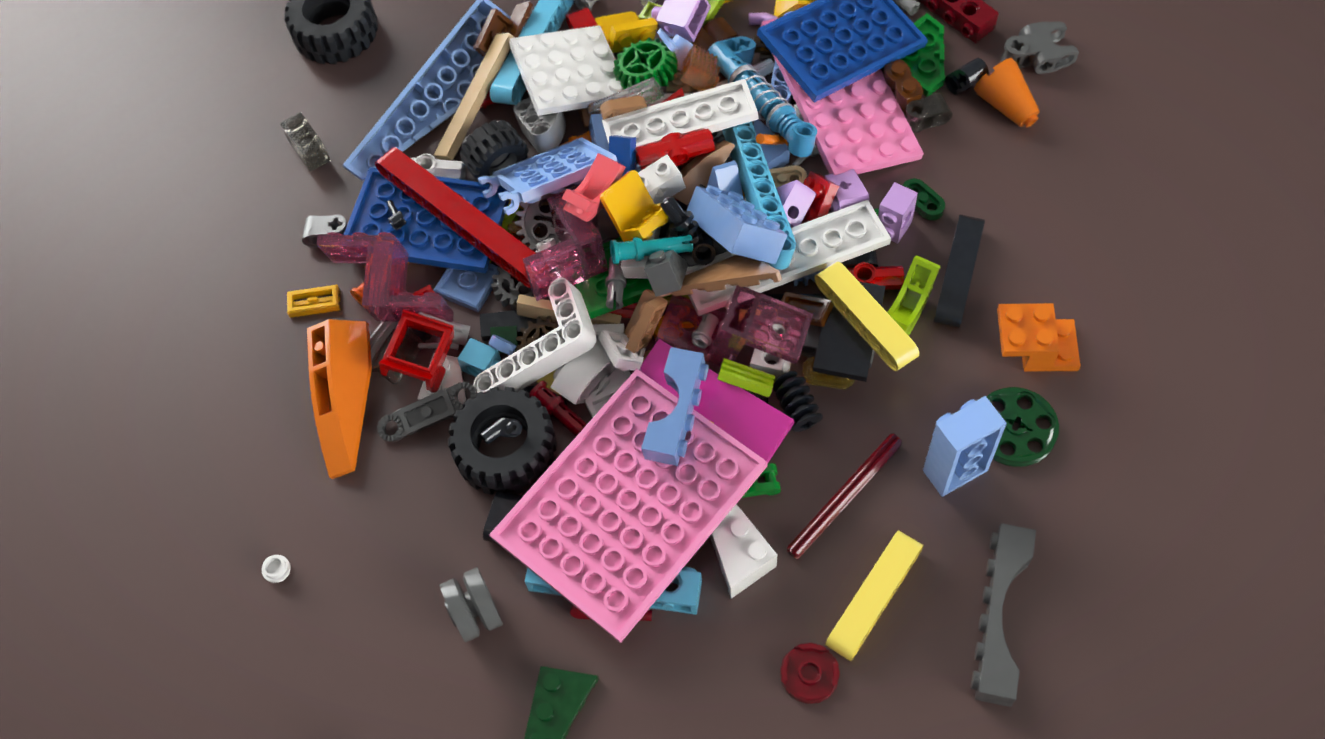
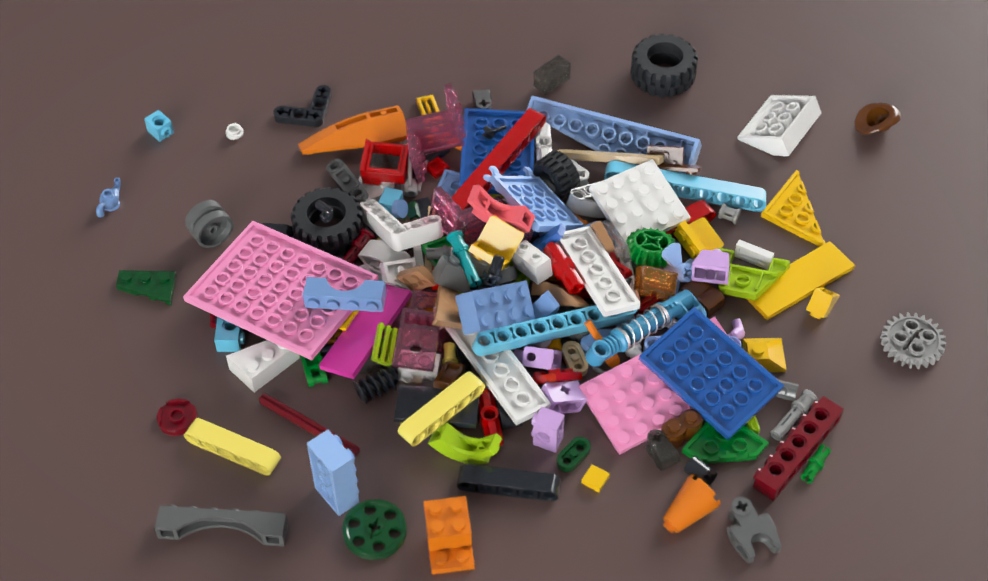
camera: 75 degrees right, 10 degrees down
(218, 681) = (159, 125): none -> medium azure brick
(268, 453) = (312, 113): none -> black beam
(955, 183) = (595, 478): none -> yellow tile

